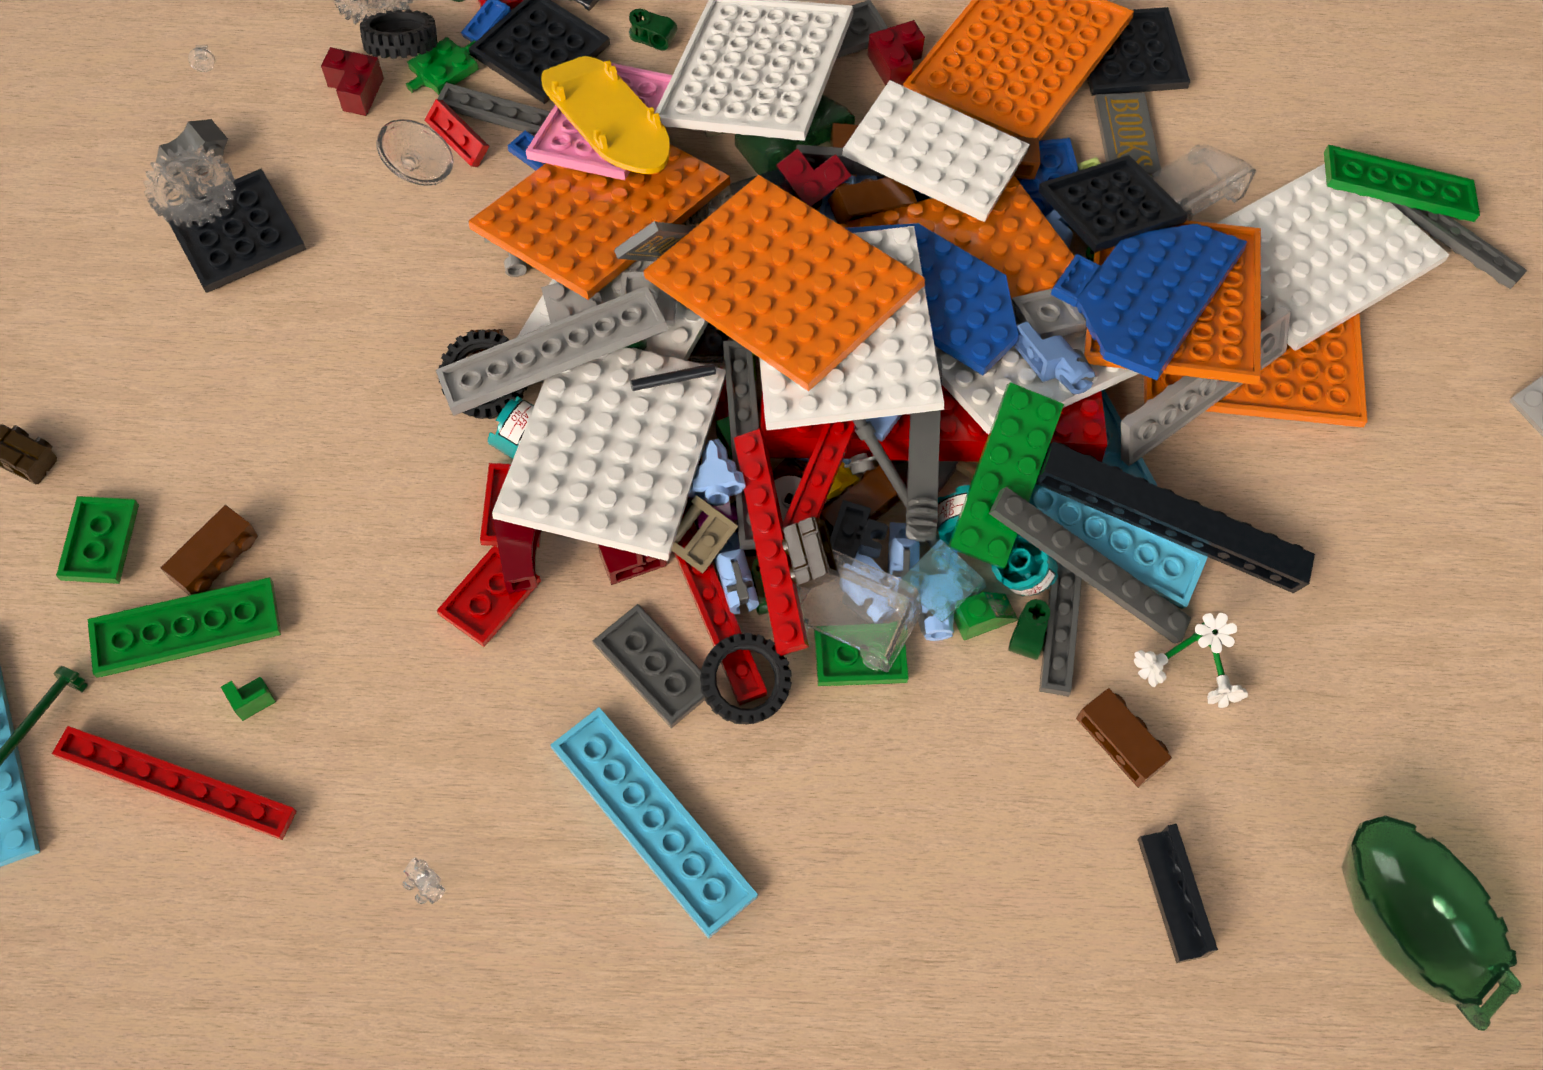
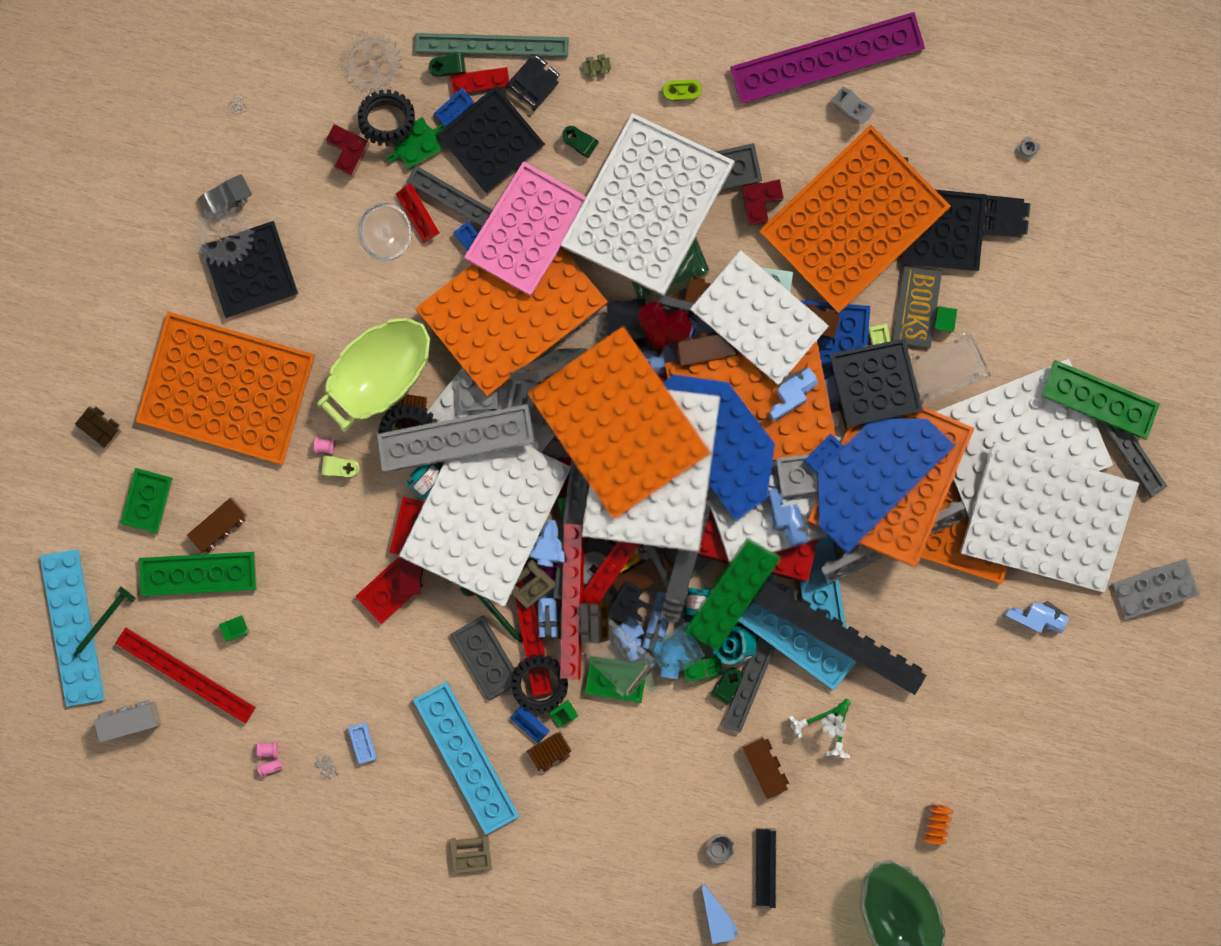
camera: 15 degrees right, 25 degrees up
(72, 869) = (127, 720): none -> light grey brick
(209, 376) = (225, 388): none -> orange plate
(320, 874) = (267, 750): none -> bright pink bush
(327, 903) = (269, 767): none -> bright pink pin
(363, 421) = (324, 446): none -> bright pink bush
(388, 443) = (337, 466): none -> yellowish green piece
(423, 300) = (376, 370): none -> yellowish green windscreen
(478, 831) = (362, 743): none -> light blue plate
(608, 114) = (528, 233): yellow piece -> none
(651, 586) = (496, 613): none -> dark green piece
(672, 377) = (532, 472): black bar -> none
(694, 987) = (472, 860): none -> dark tan plate
(743, 746) = (529, 724): none -> blue plate
(783, 781) = (549, 751): none -> reddish brown brick
(792, 720) = (563, 713): none -> green panel
(1009, 222) = (792, 392): none -> light blue plate
(1090, 565) = (773, 659): dark grey plate -> none
(1094, 876) = (720, 848): none -> light grey hair
(1128, 998) = (719, 921): none -> light blue slope
(1170, 133) = (945, 319): none -> green panel
(1200, 27) = (1006, 216): none -> black plate
(1397, 324) = (1049, 517): none -> white plate
(1413, 768) = (938, 825): none -> orange piece
(1432, 456) = (1040, 615): none -> light blue plate

